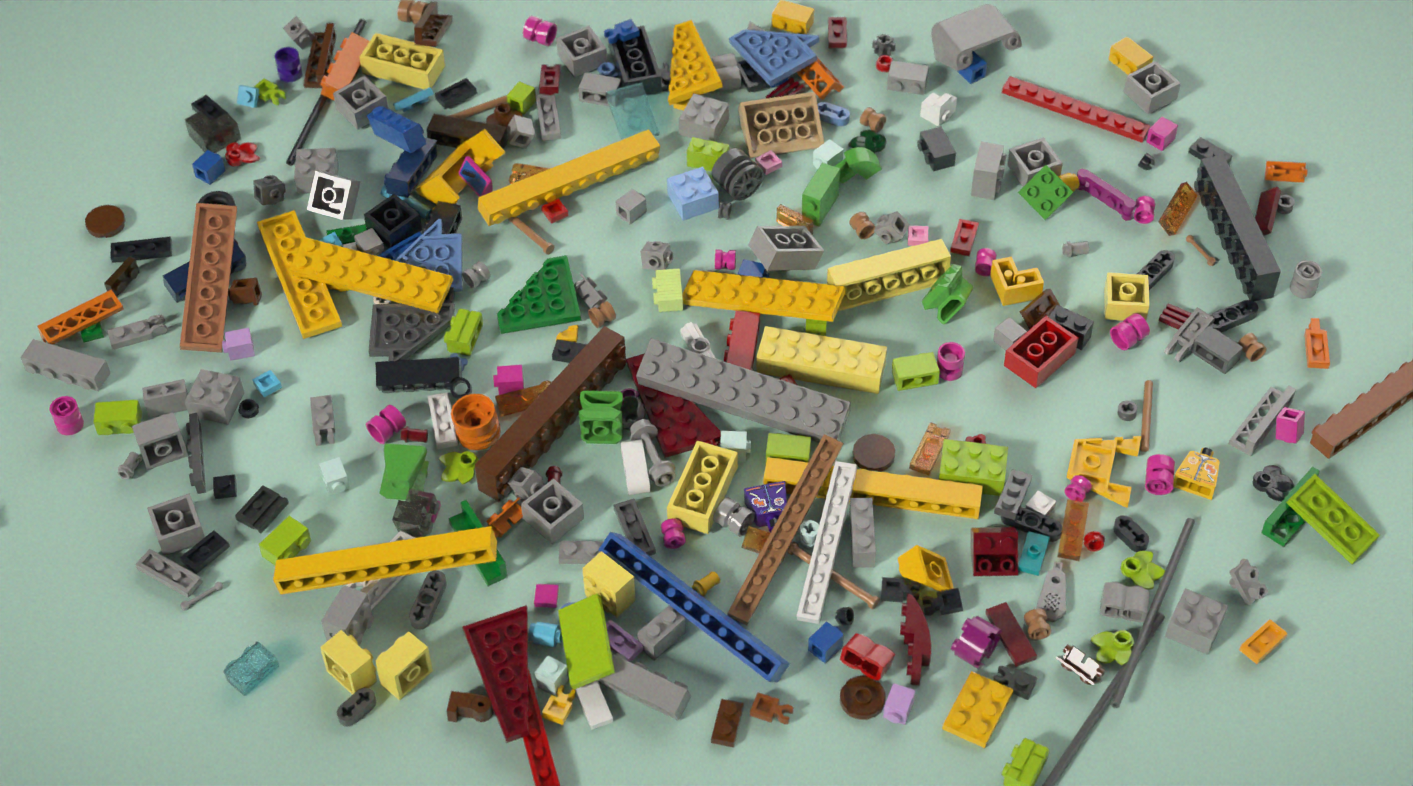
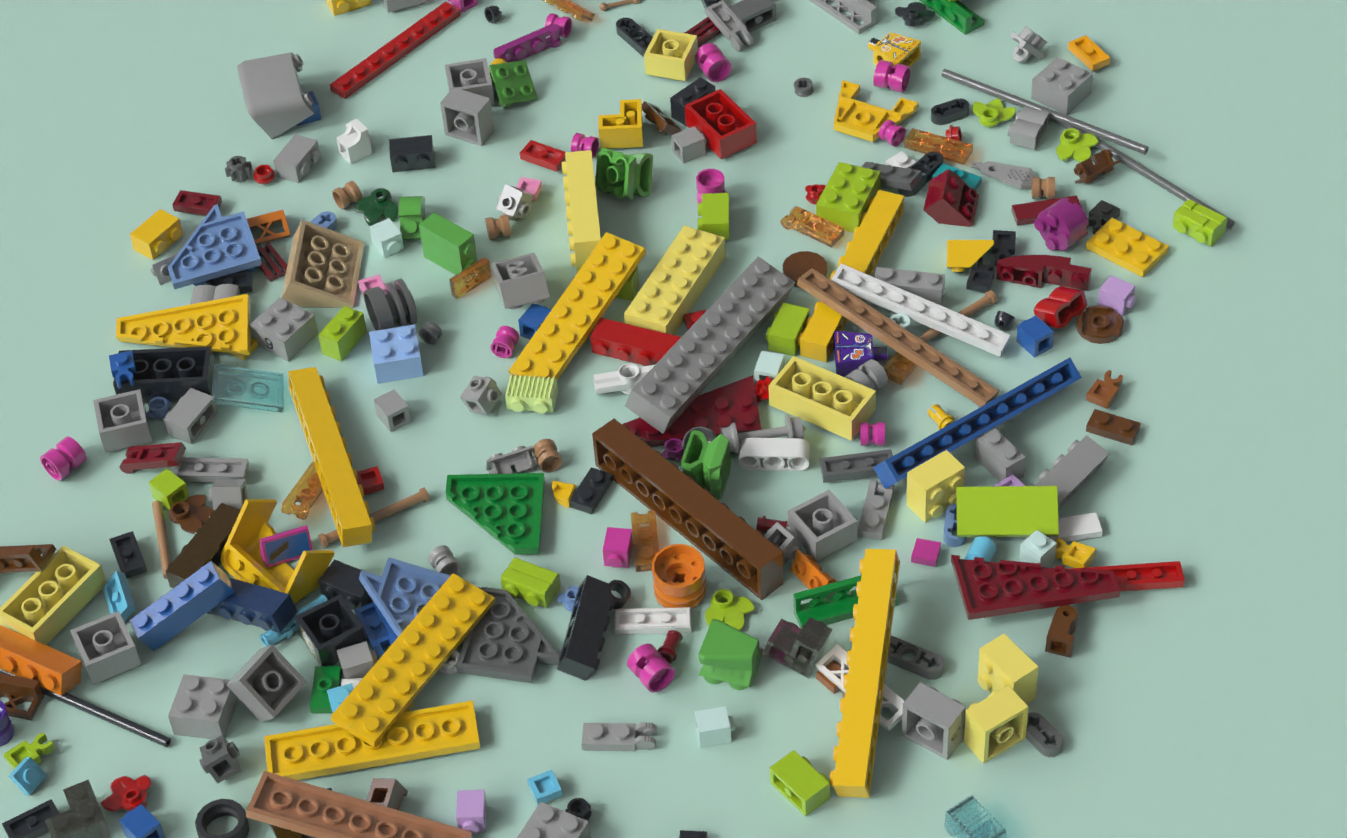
camera: 75 degrees left, 5 degrees down
(261, 509) = (741, 805): pearl dark grey plate -> none
(1075, 248) = (588, 84): light grey pin -> none
(1146, 416) = (807, 74): medium nougat bar -> none

